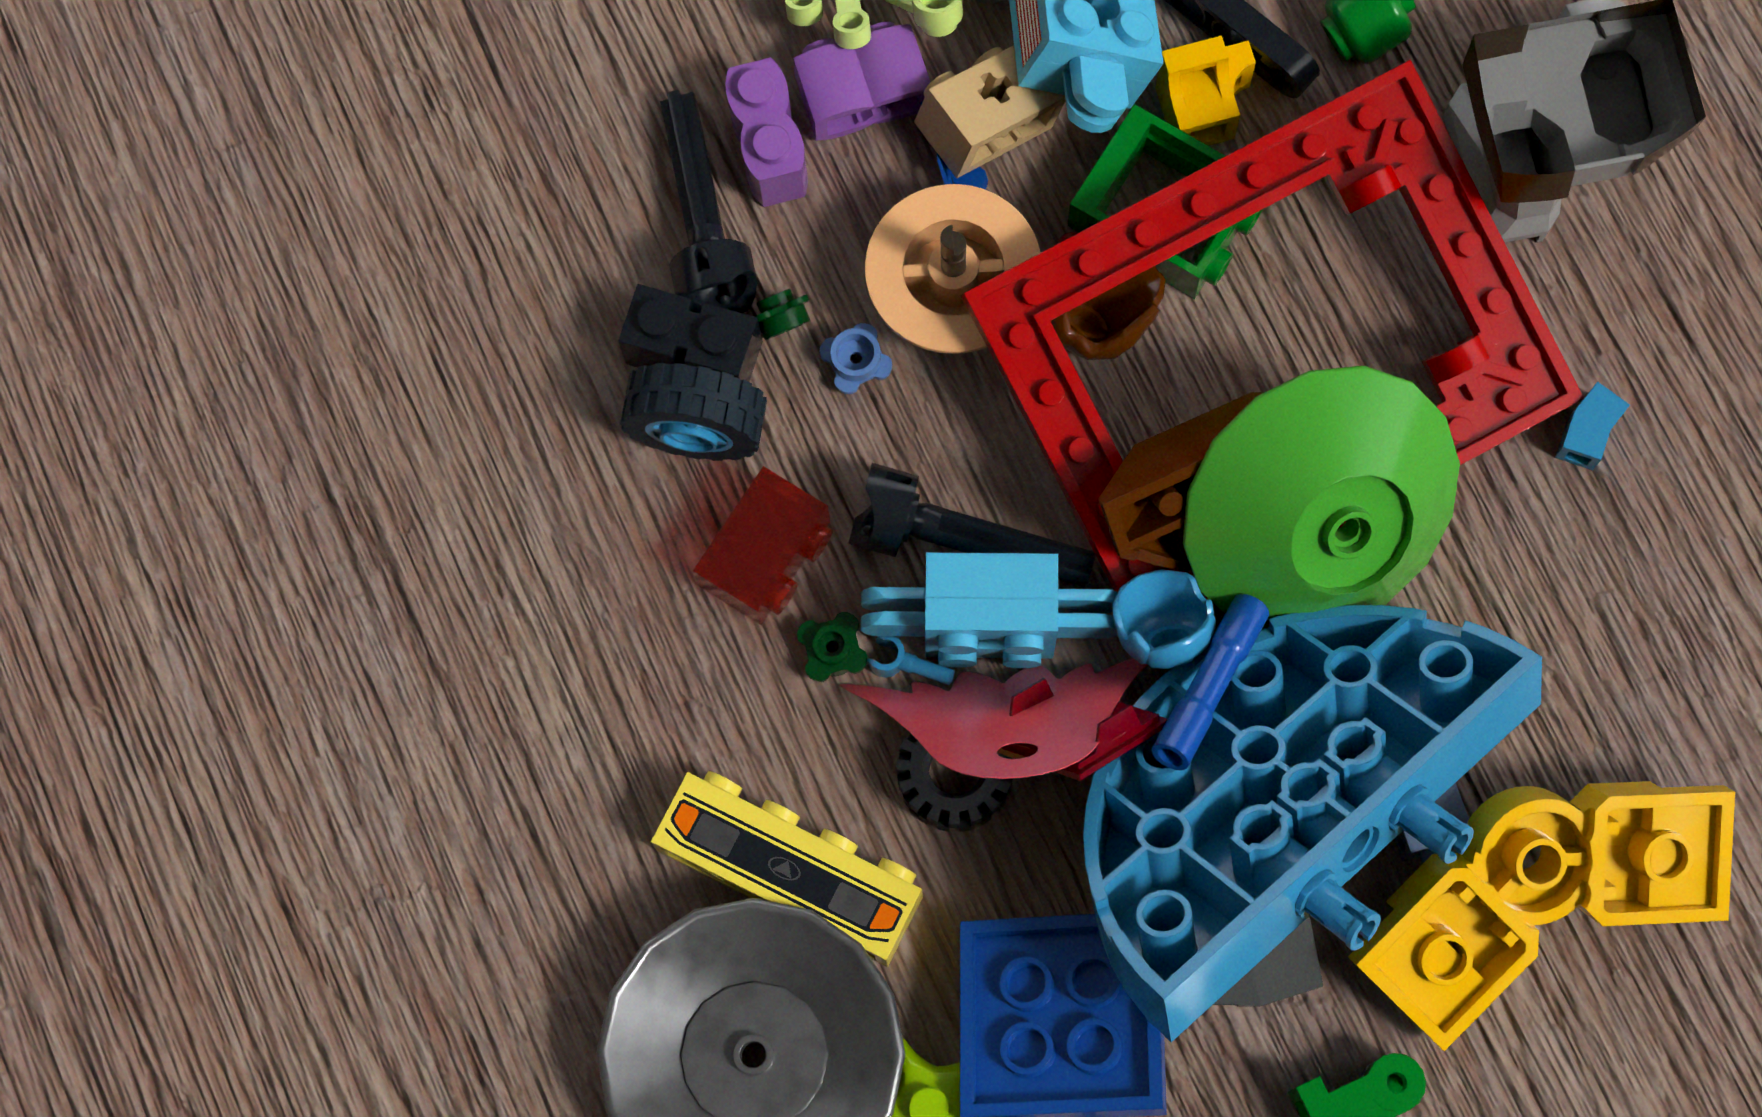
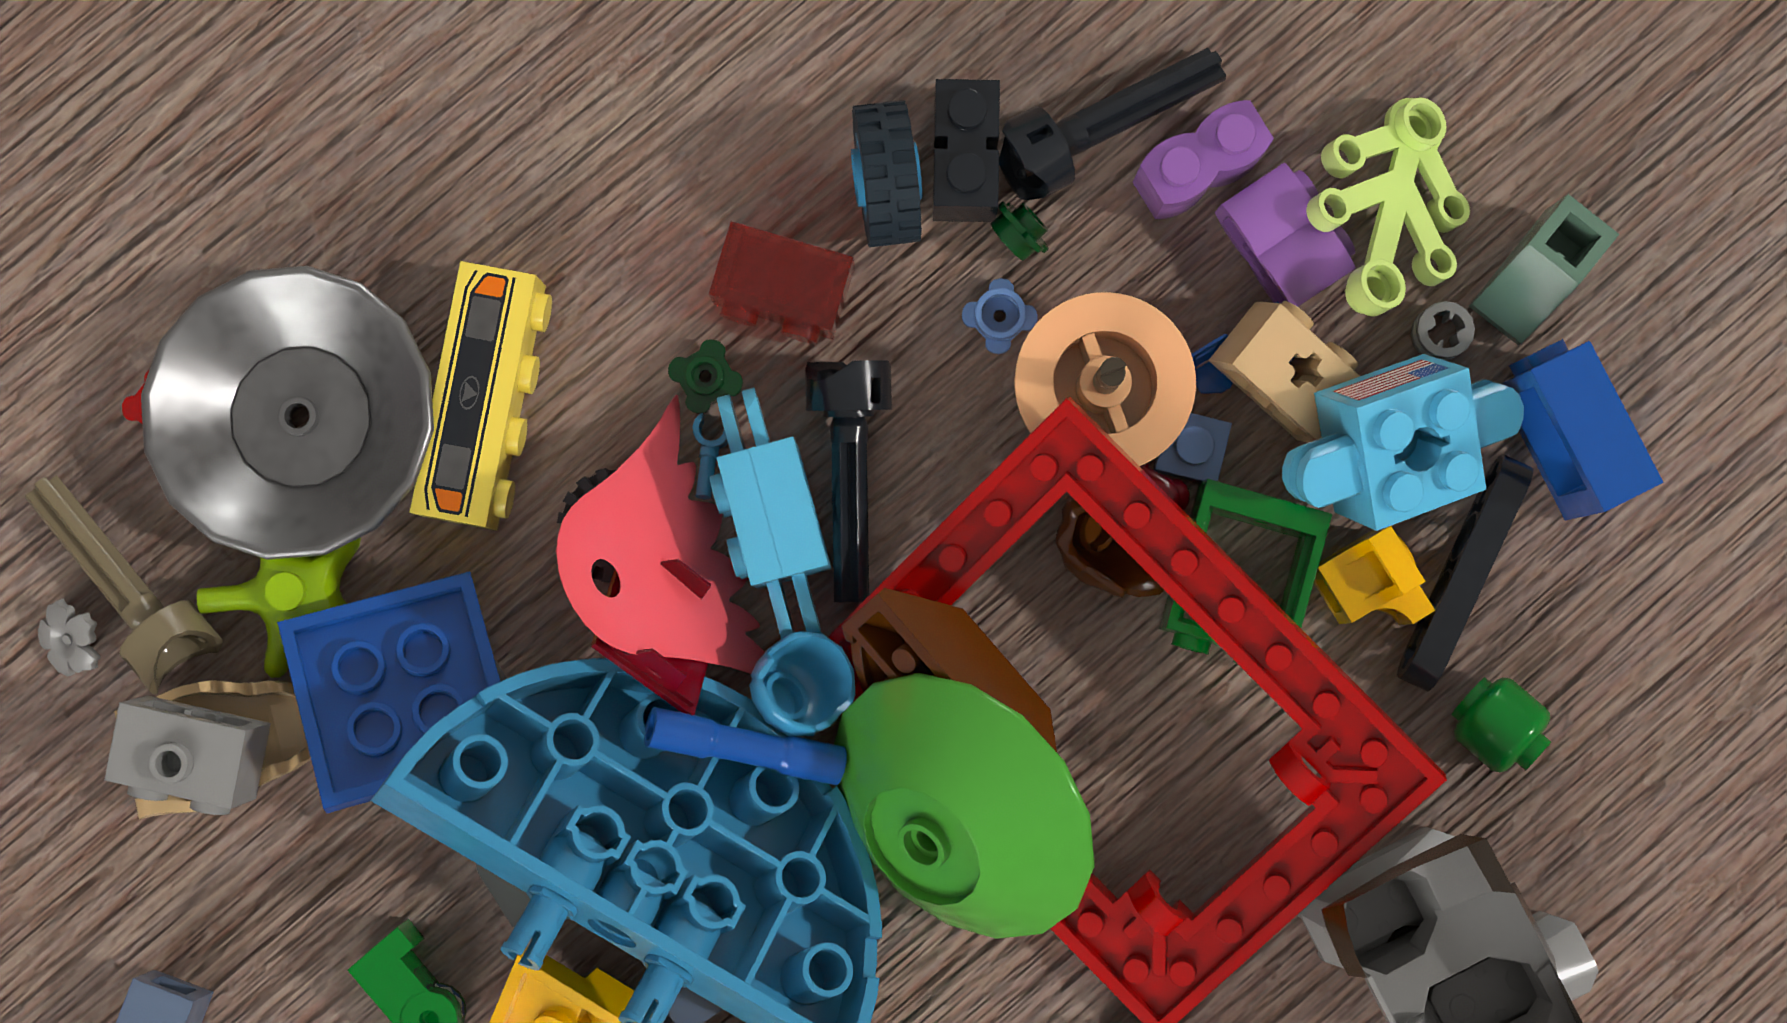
camera: 70 degrees right, 10 degrees up
(1042, 210) = (1196, 451): none -> medium blue plate

